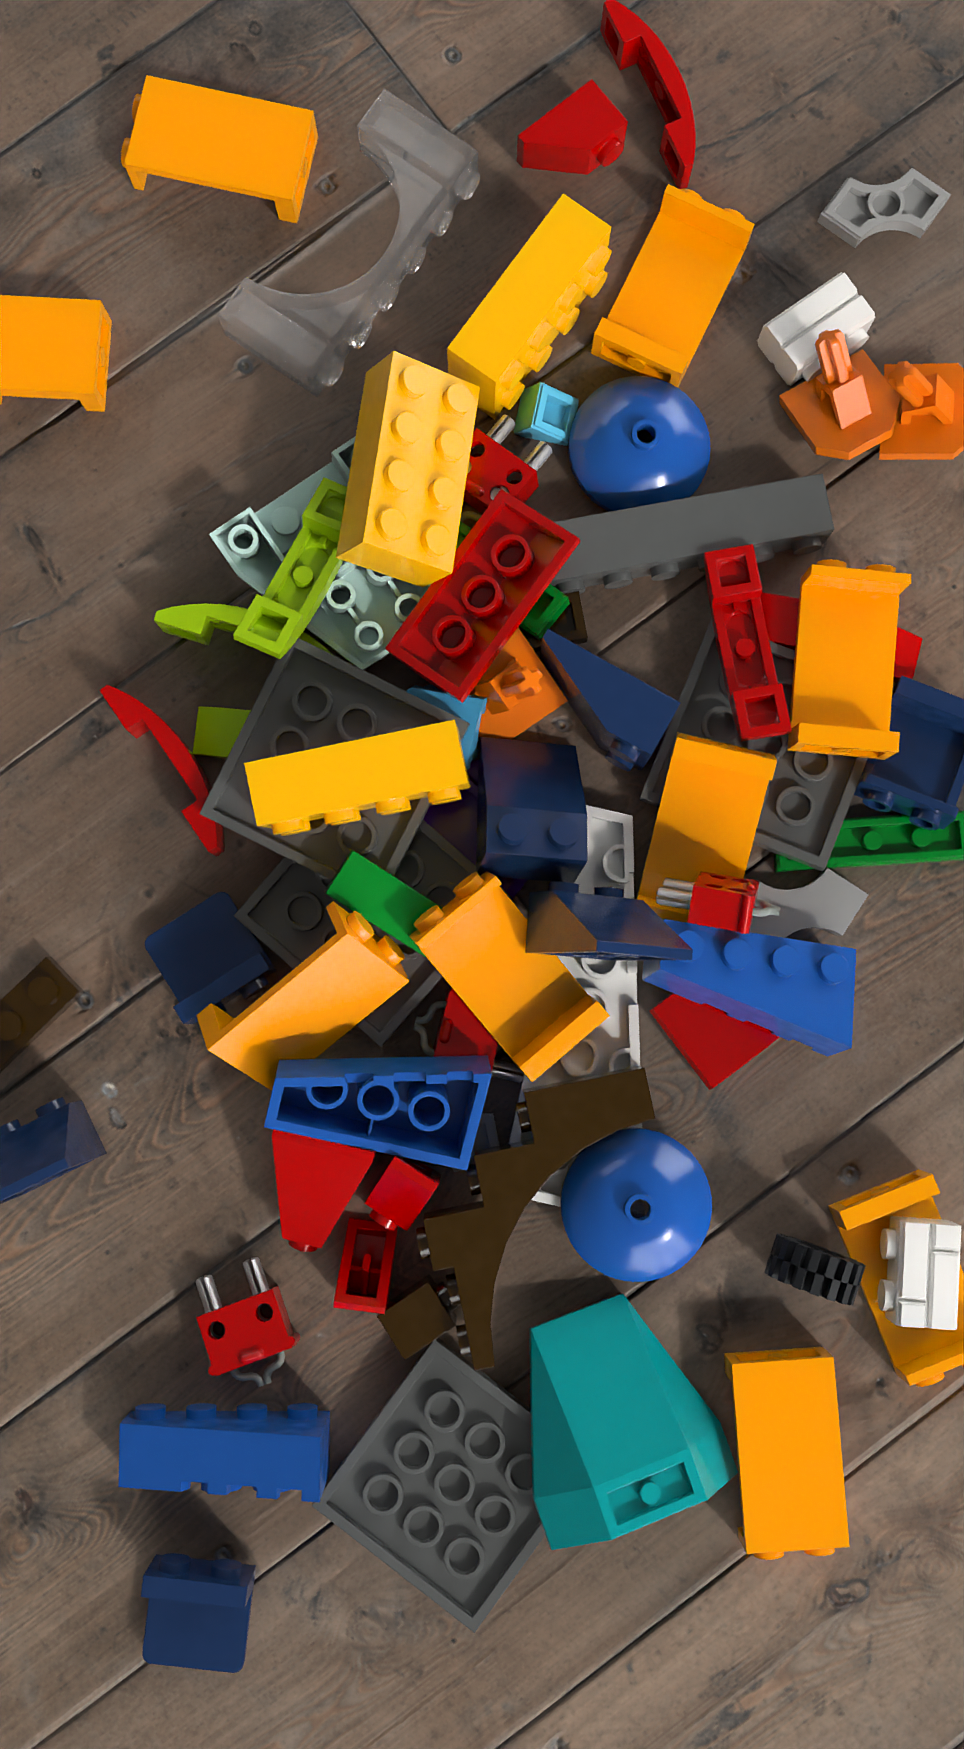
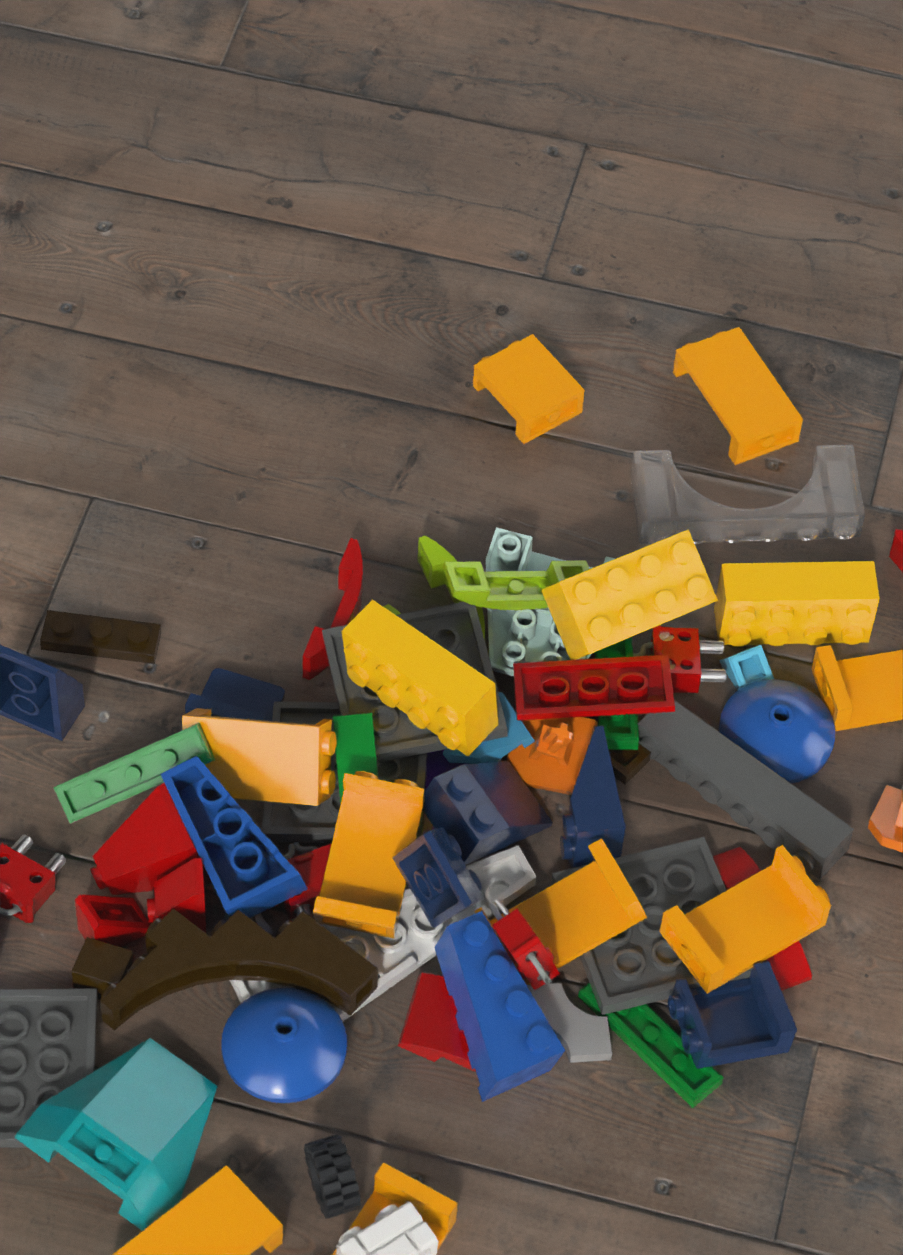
camera: 50 degrees right, 30 degrees down
(223, 1130) = (130, 773): none -> tile
(744, 643) = (706, 856): red slope -> none

